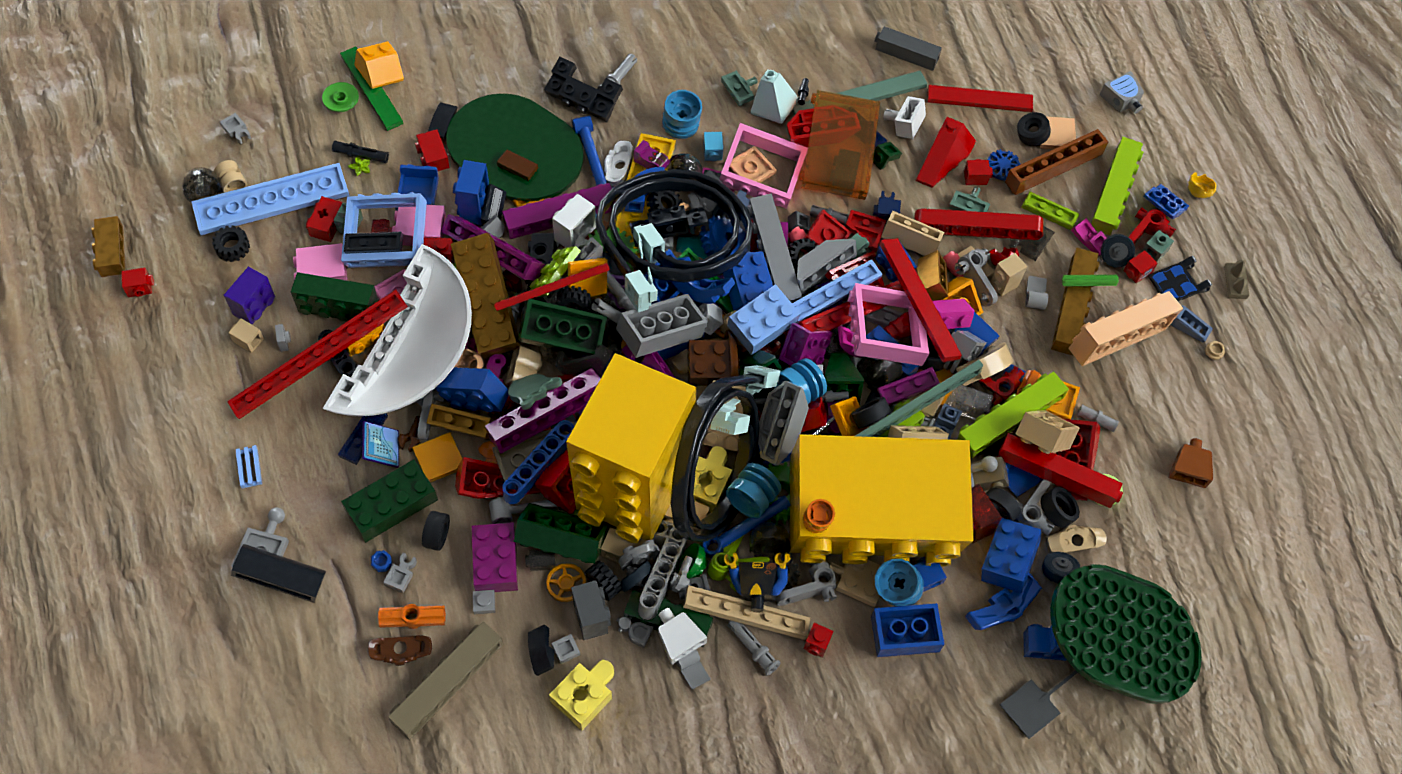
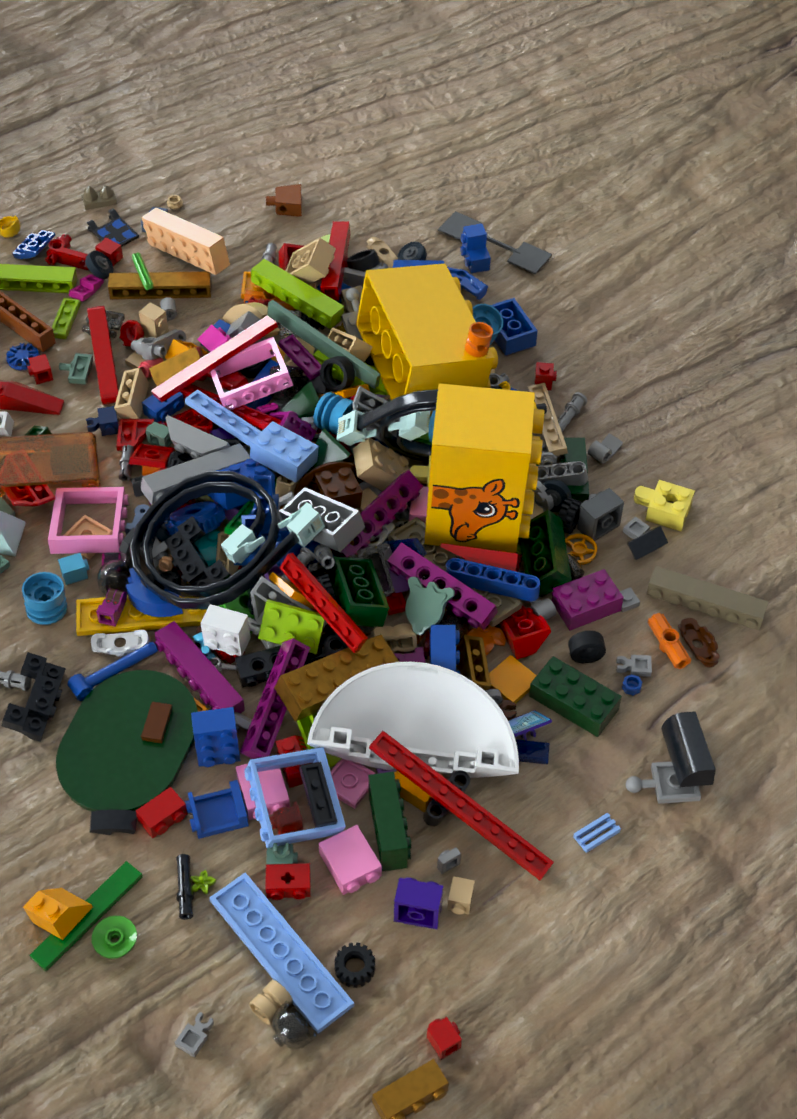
camera: 105 degrees left, 10 degrees down
(640, 633) = (596, 486): light grey tile -> none
(679, 635) = (594, 446): white torso -> none
(1125, 634) = (452, 208): dark green tile -> none
(1158, 245) = (83, 242): sand green brick -> none

